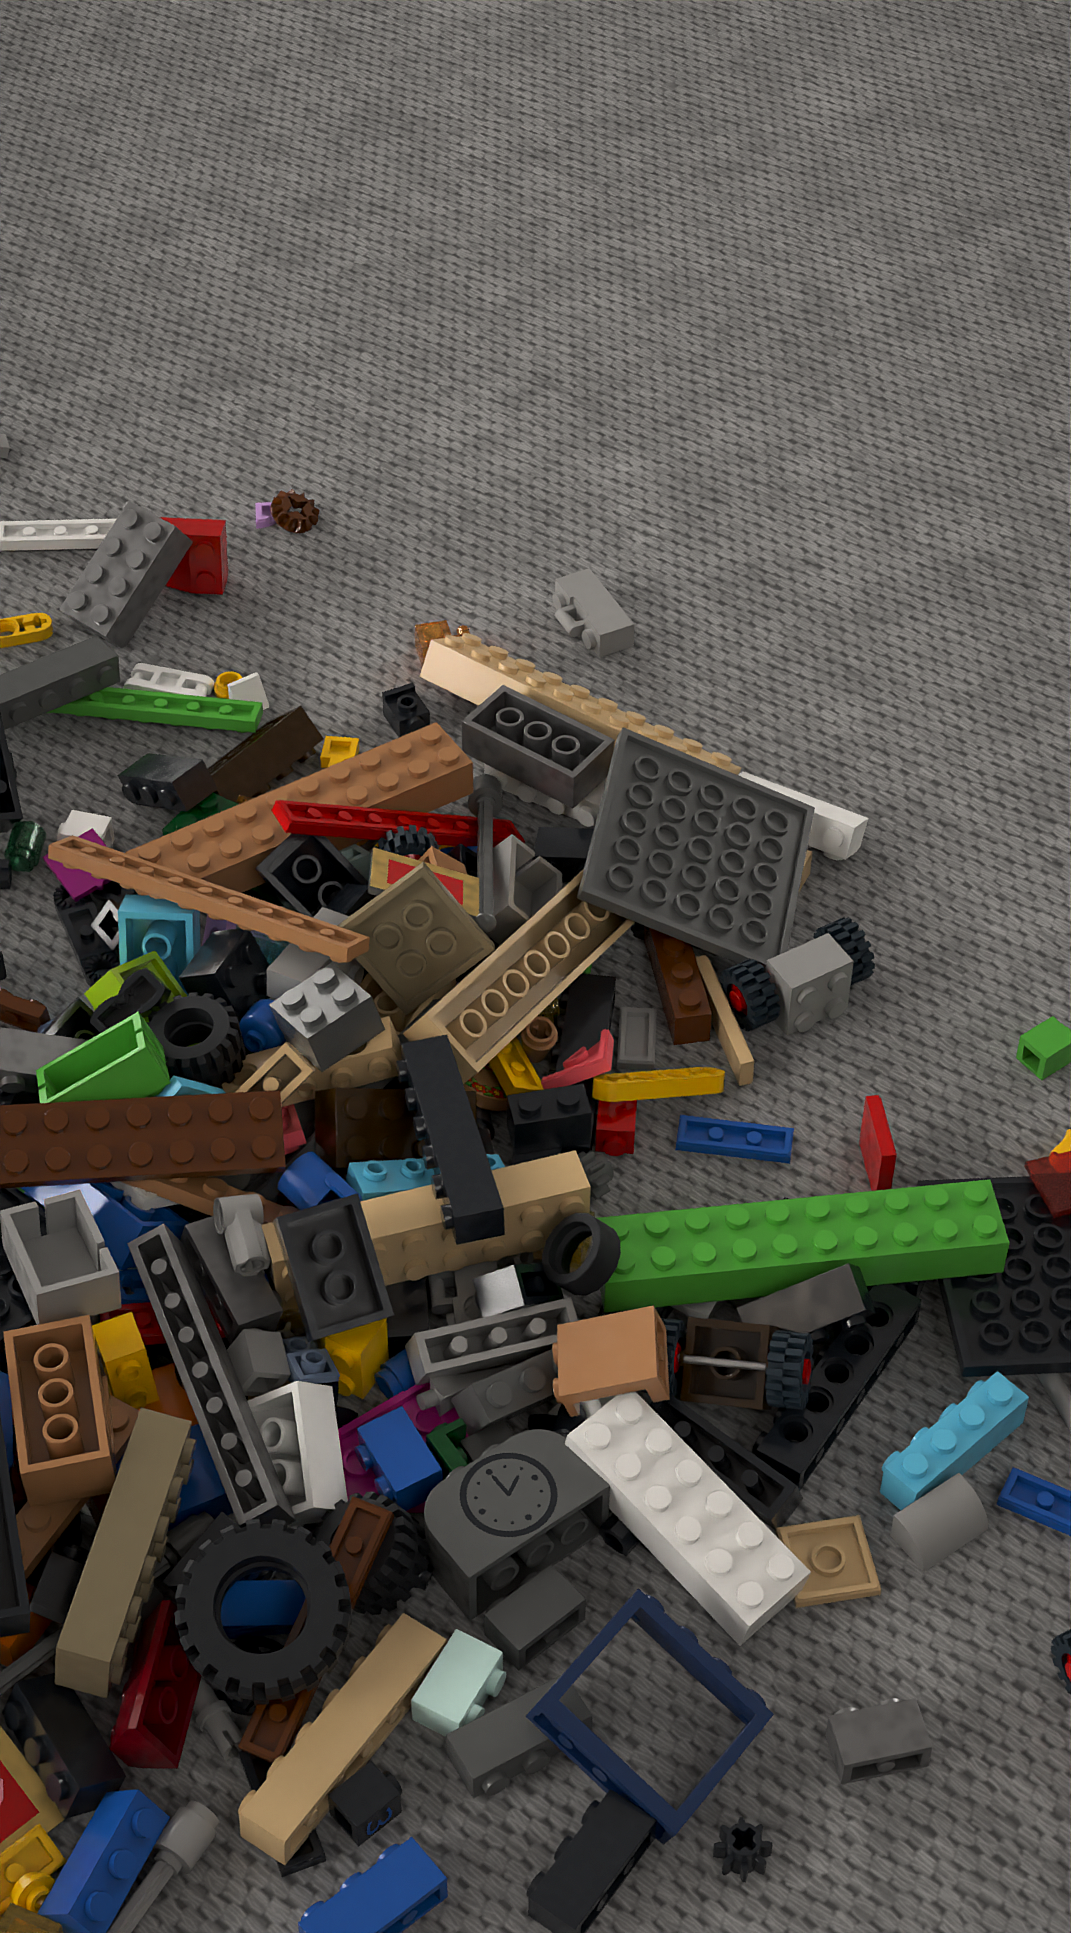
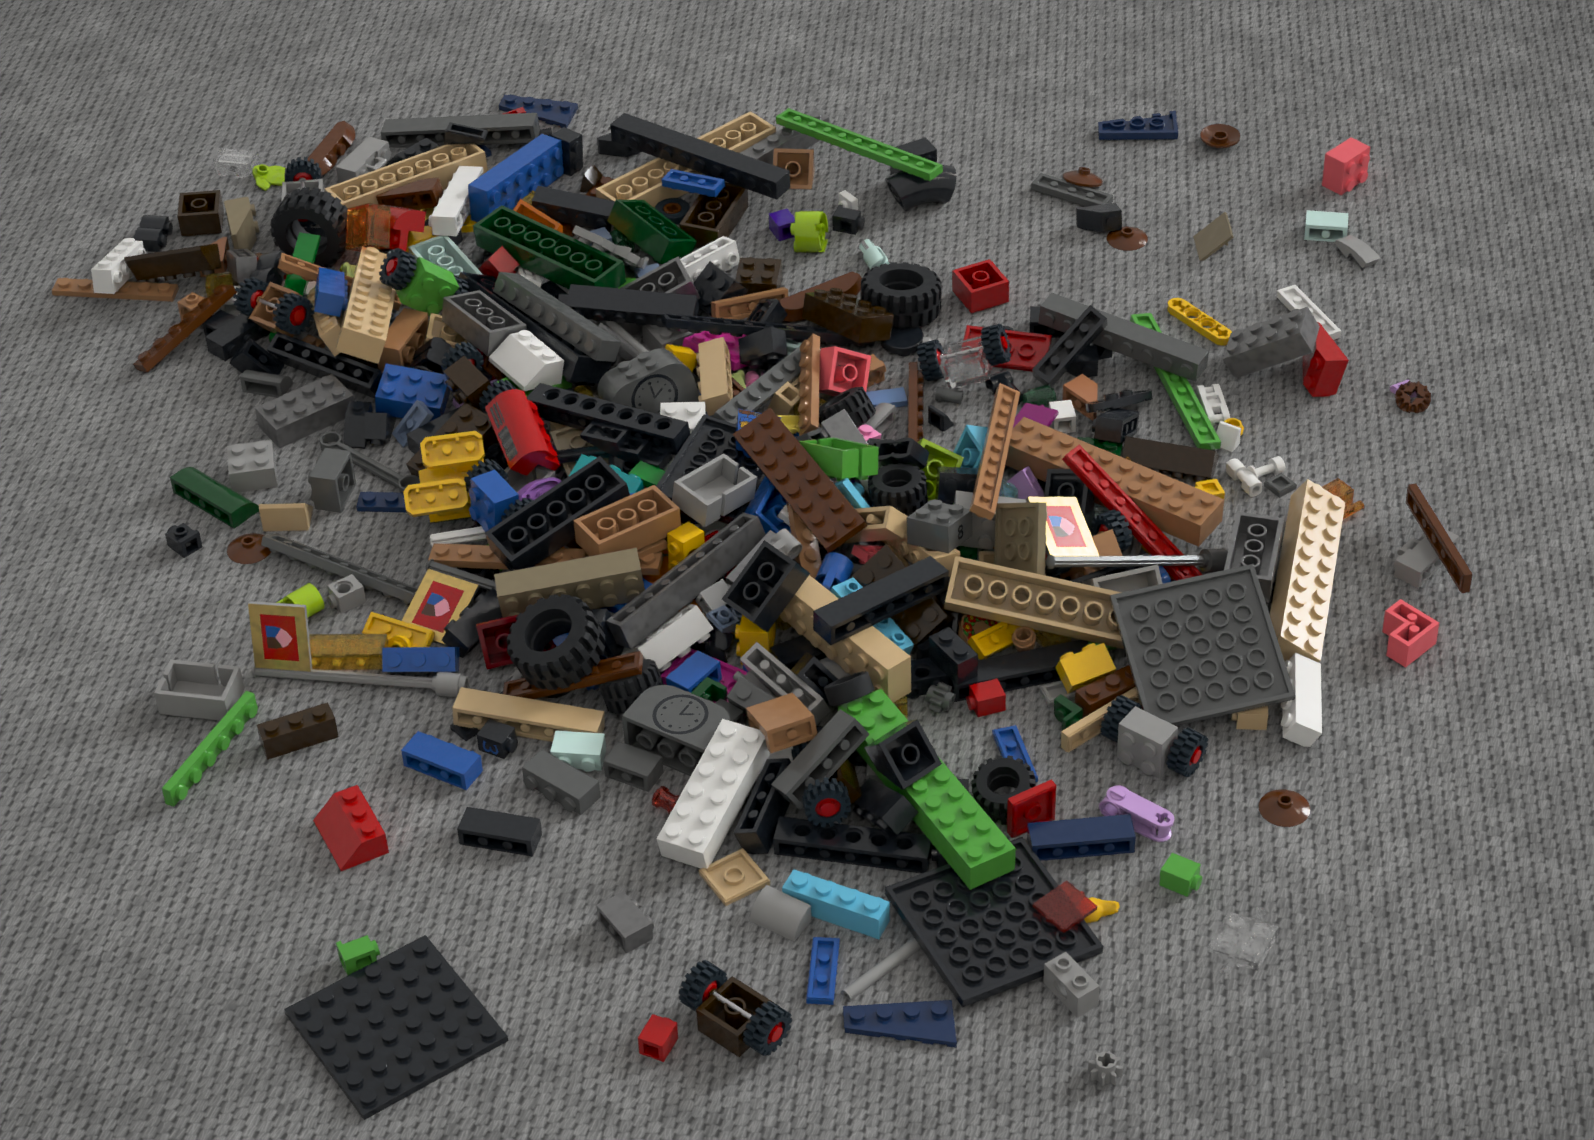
camera: 70 degrees right, 5 degrees down
(58, 794) = (1081, 391): none -> nougat slope
(110, 765) = (1115, 401): none -> black plate
(335, 703) = (1250, 475): none -> white bar
(368, 687) = (1280, 485): none -> dark grey tile
(405, 710) = (1267, 502): black brick -> none
(583, 1064) = (1011, 660): coral tile -> none
(596, 579) = (1438, 538): none -> reddish brown tile
(605, 1765) = (550, 808): dark blue window -> none
(620, 1593) = (668, 799): none -> clear red bush
(637, 991) = (1084, 667): none -> yellow brick
(658, 1084) = (1023, 702): yellow beam -> none
(693, 1047) = (1066, 711): none -> dark green bracket
(716, 1341) = (820, 757): none -> dark grey brick
(730, 673) = (1409, 632): none -> coral brick
(745, 1860) = (536, 885): black gear -> none
(771, 1230) = (904, 754): none -> black slope
(826, 1141) = (998, 774): none -> black tyre
(919, 1048) = (1145, 815): none -> lavender piece
(936, 1119) = (1082, 837): none -> dark blue brick
(956, 910) = (1284, 808): none -> reddish brown dish

